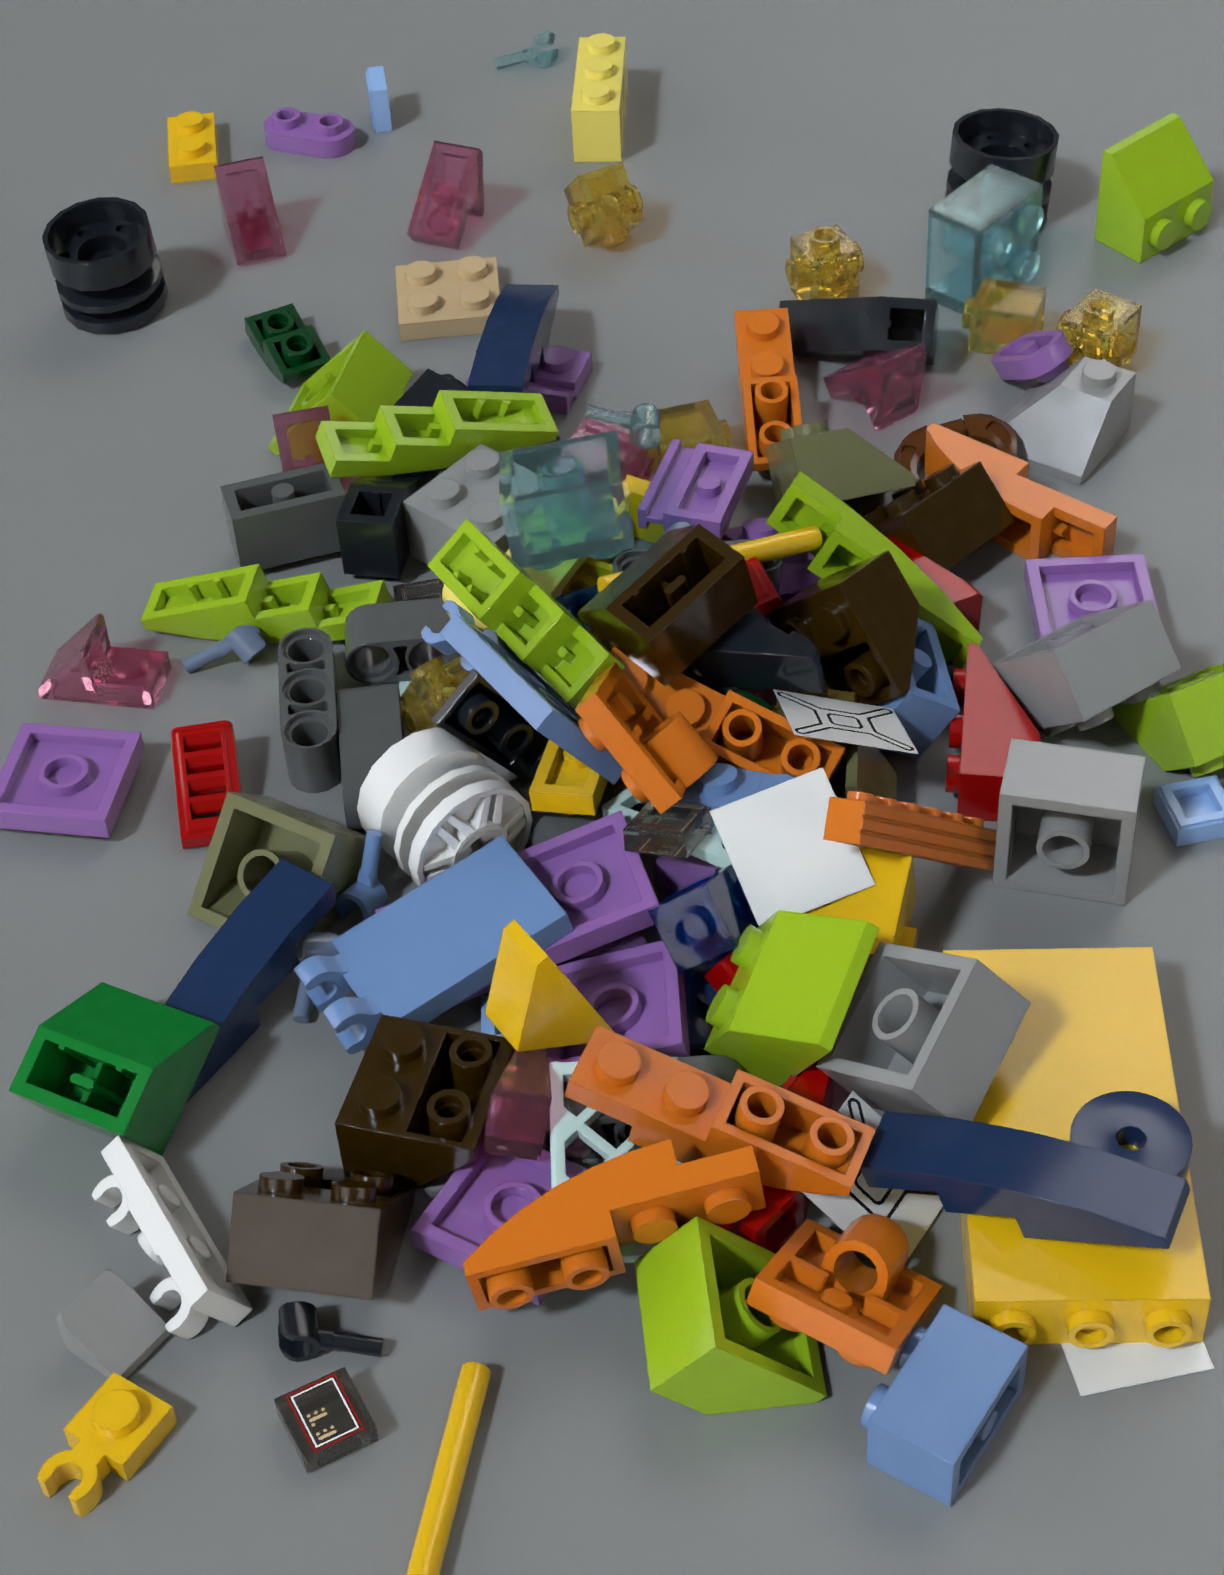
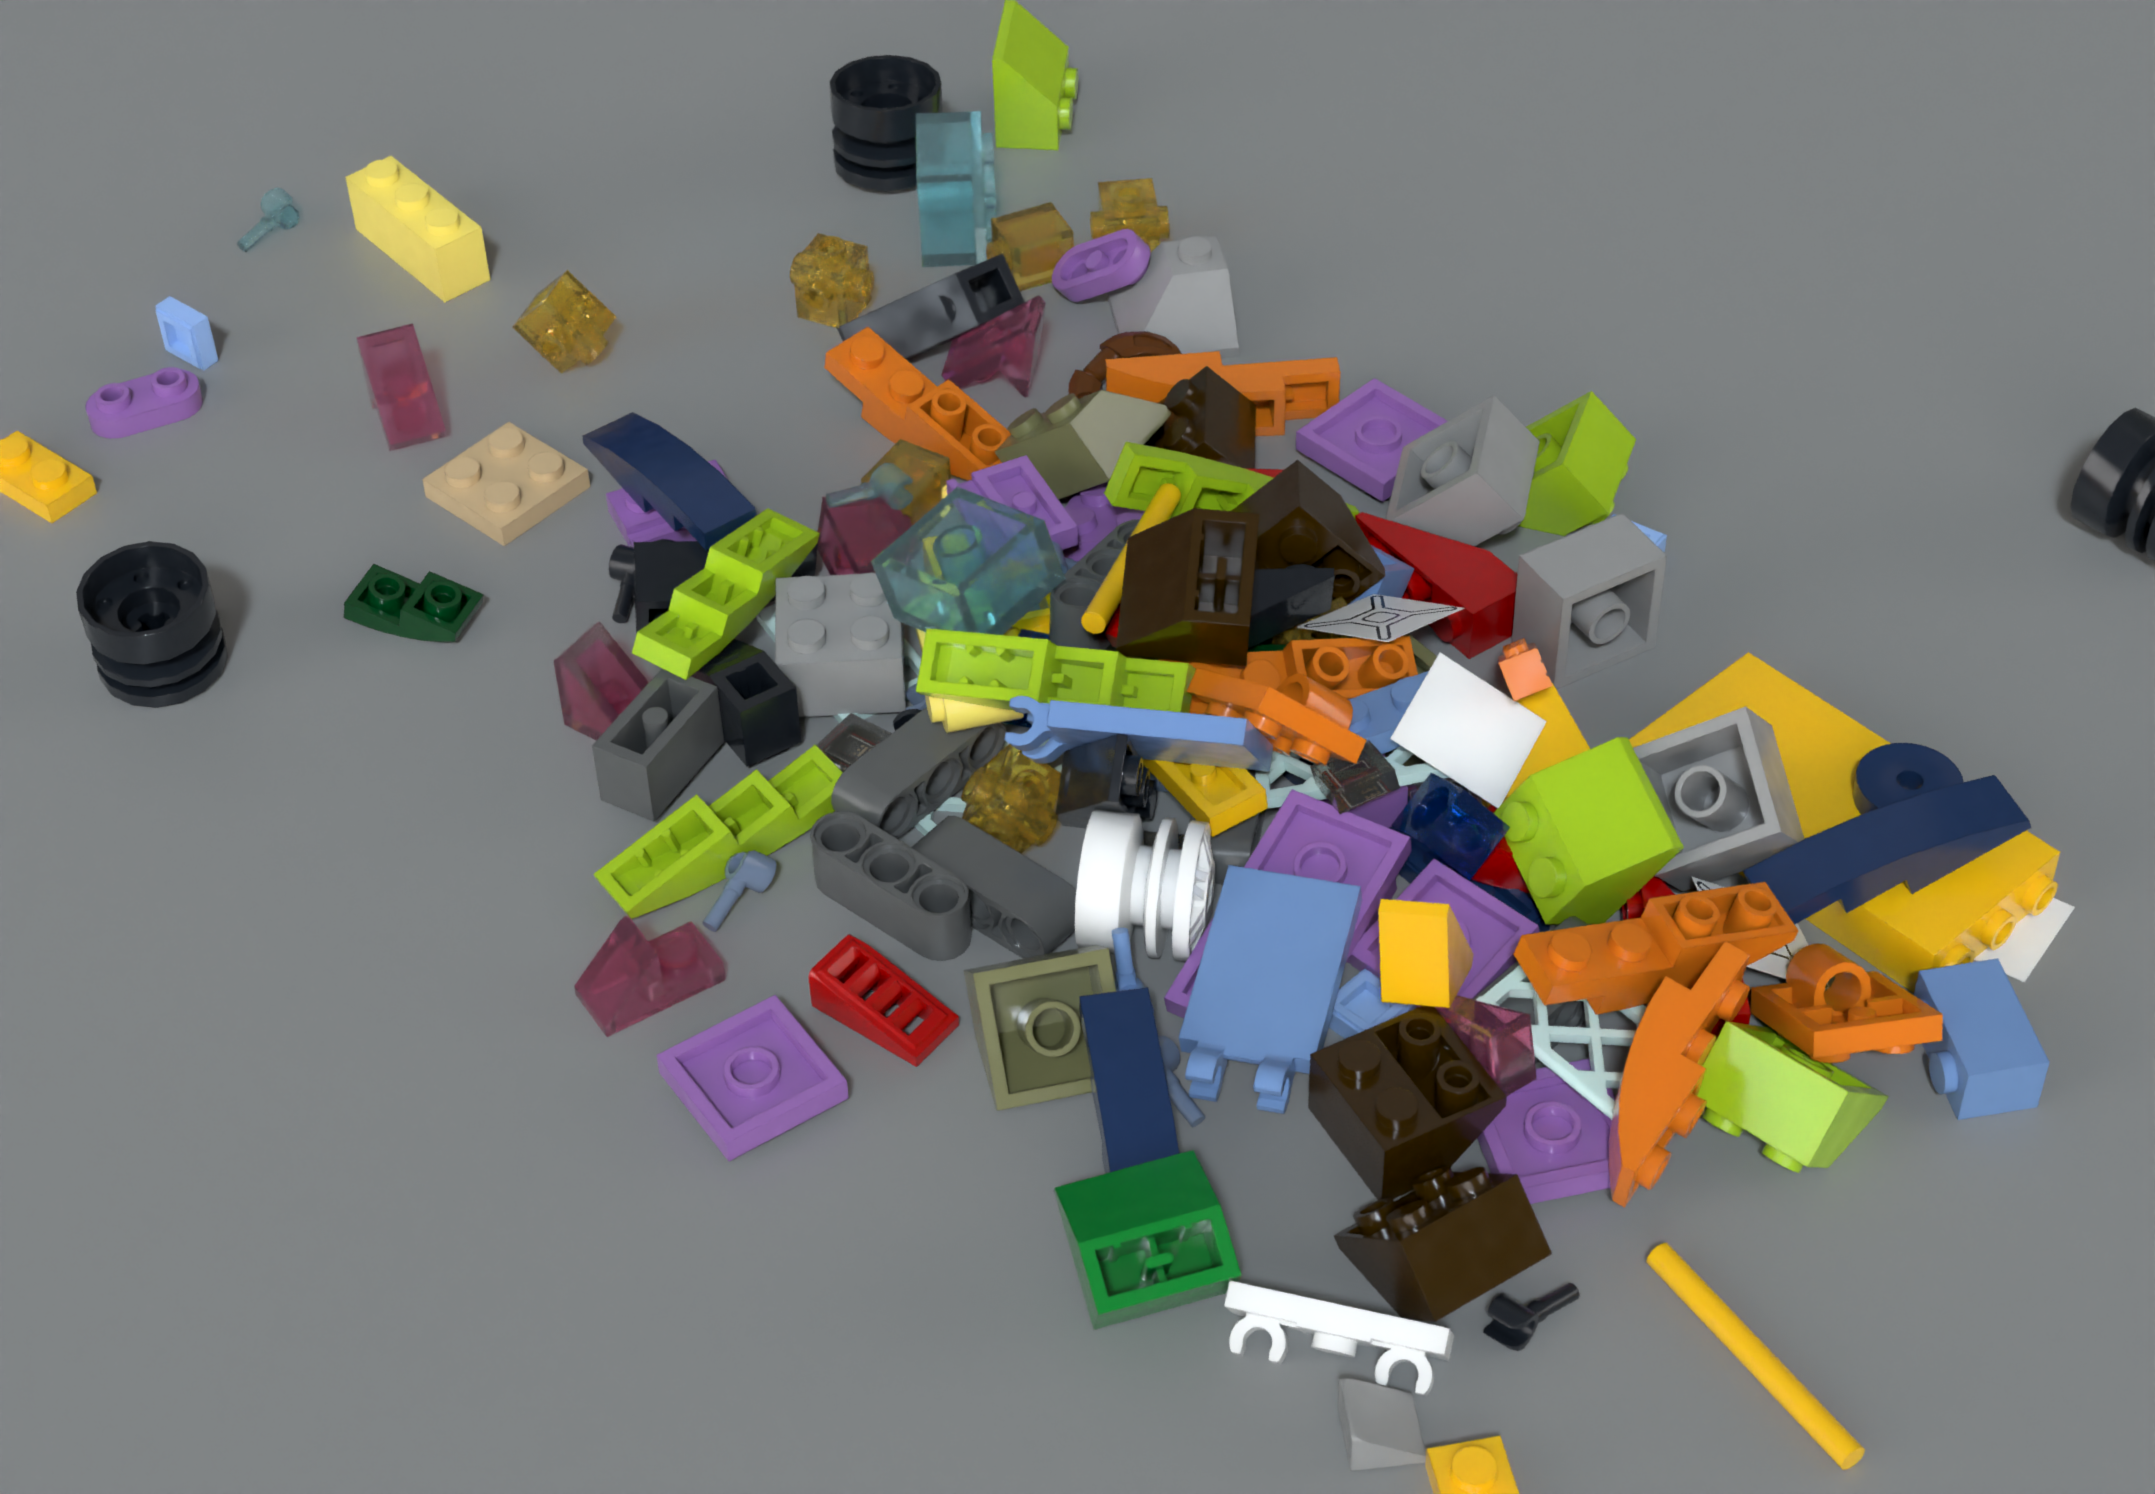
camera: 45 degrees left, 0 degrees up
(249, 210) = (212, 505): clear pink slope -> none
(326, 1419) = (1606, 1362): clear smoke tile -> none
(354, 383) = (544, 611): lime slope -> none

